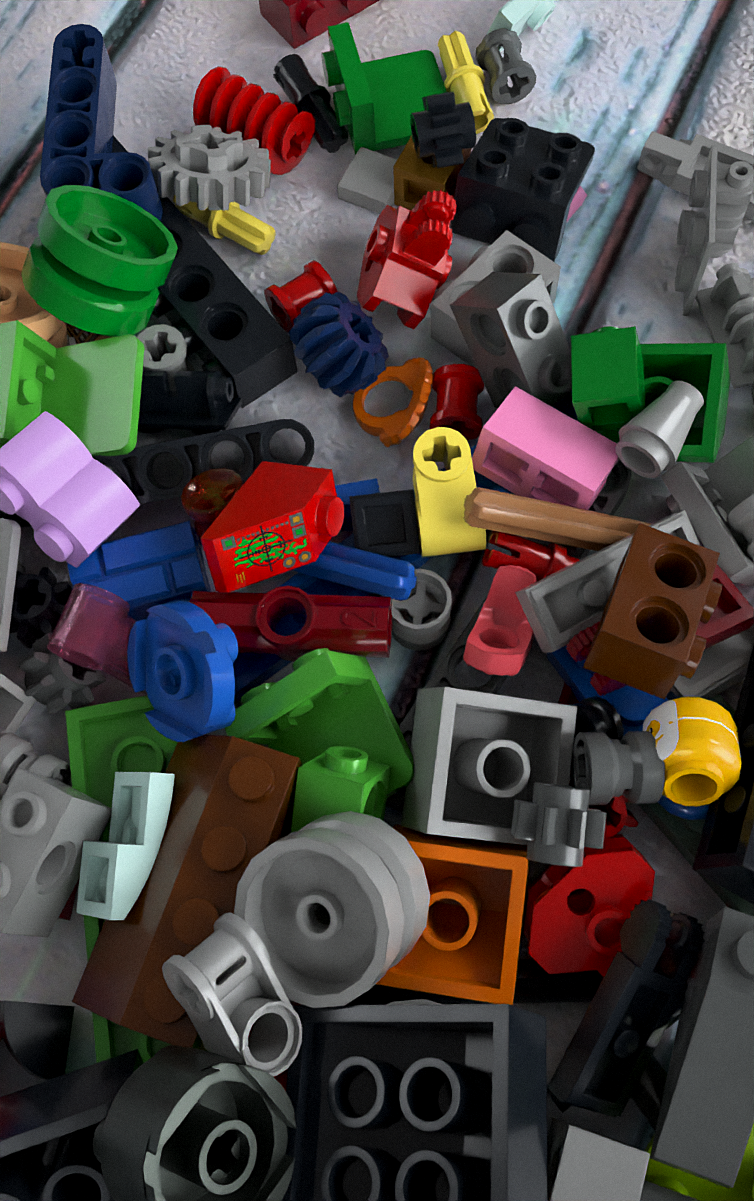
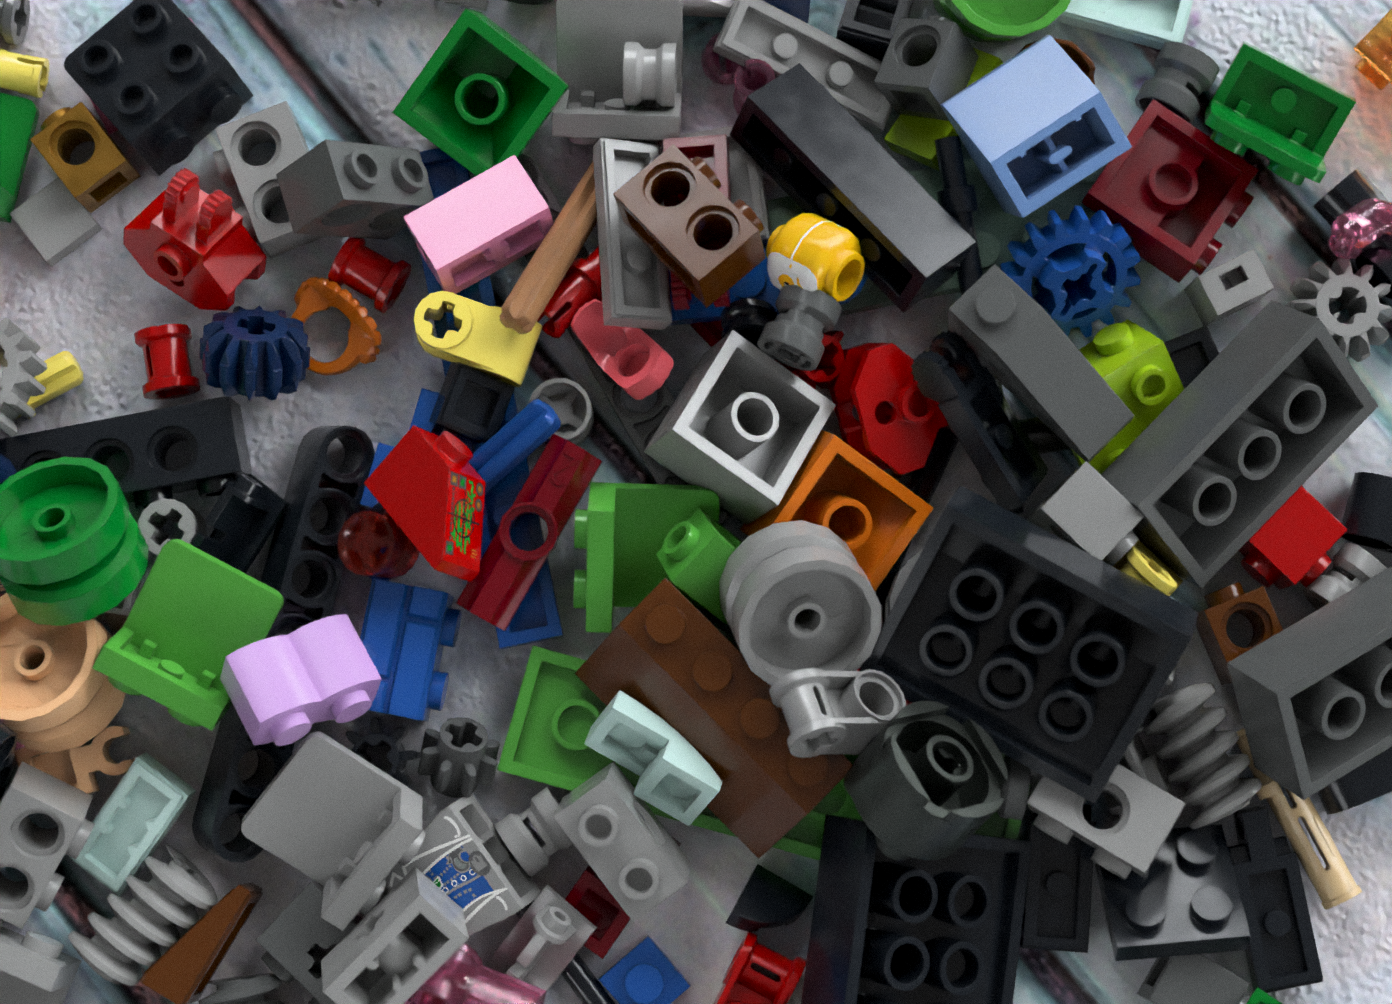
camera: 70 degrees left, 15 degrees up
(94, 631) = (460, 699): clear pink piece -> none
(184, 669) = (529, 616): blue plate -> none
(443, 130) = (78, 132): black gear -> none
(558, 824) = (823, 398): dark grey gear -> none
(607, 377) = (443, 131): green brick -> none
(658, 432) = (521, 117): light grey cone -> none

